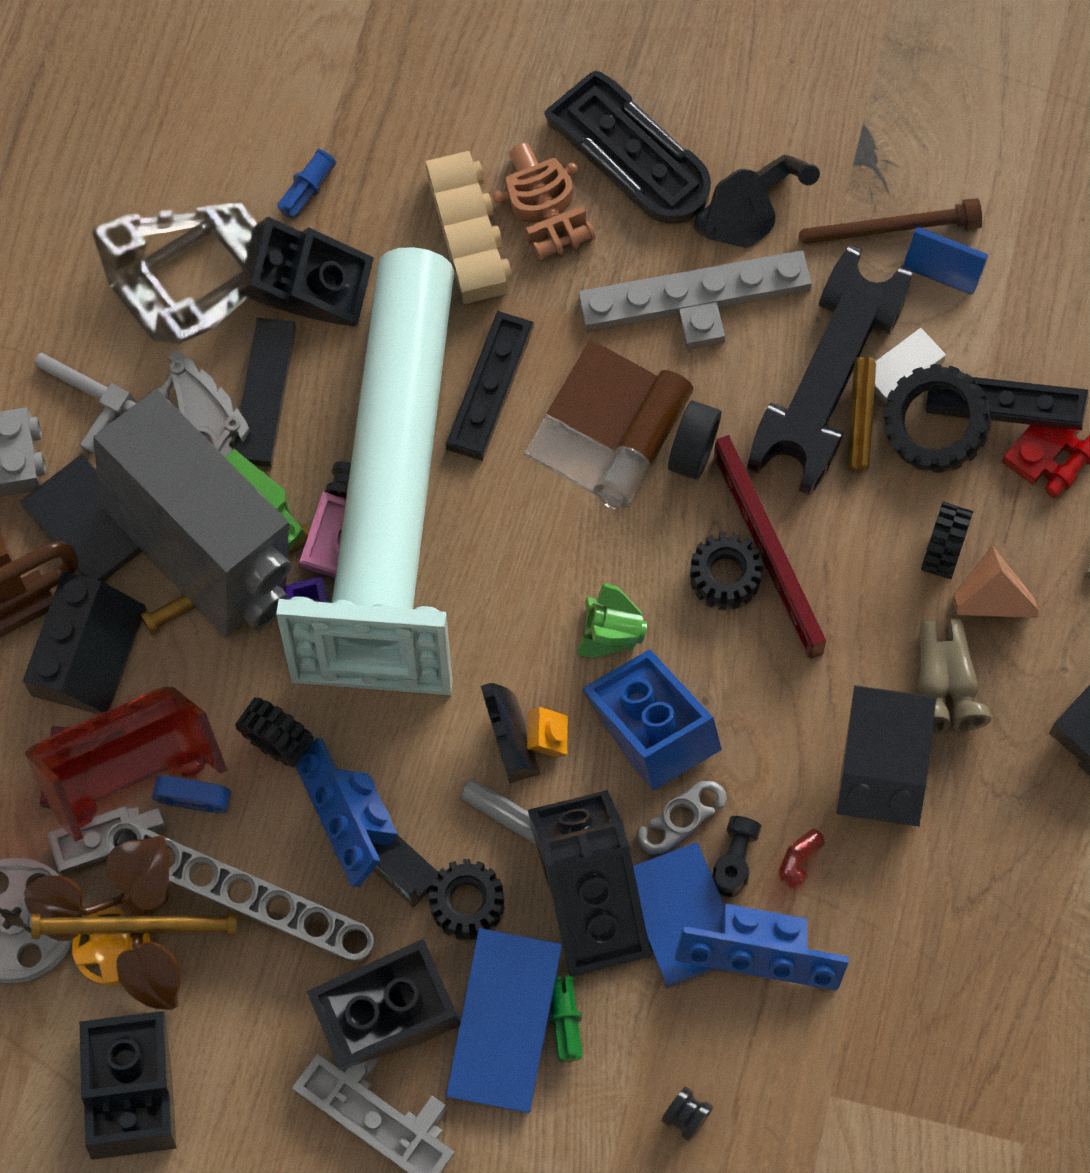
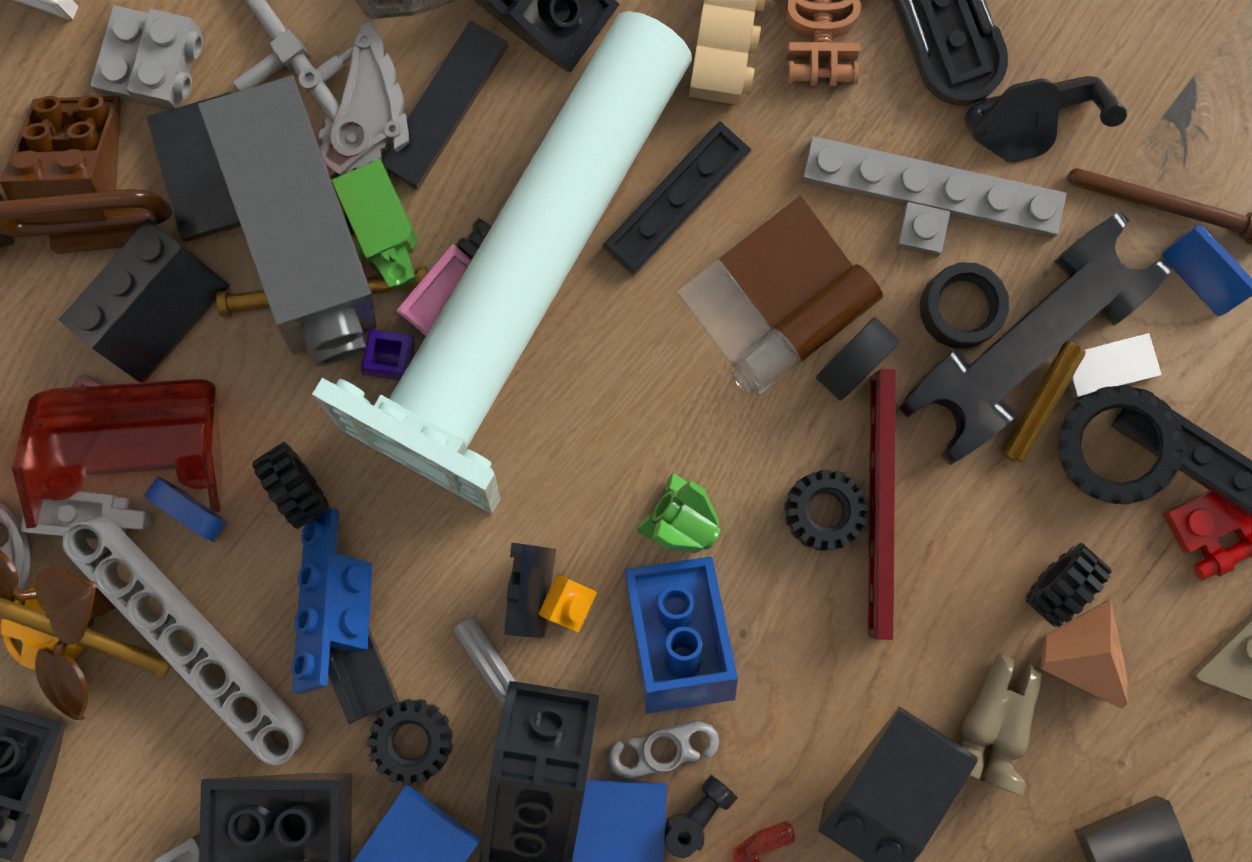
camera: 15 degrees right, 15 degrees up
(762, 341) = (987, 282): none -> black tyre

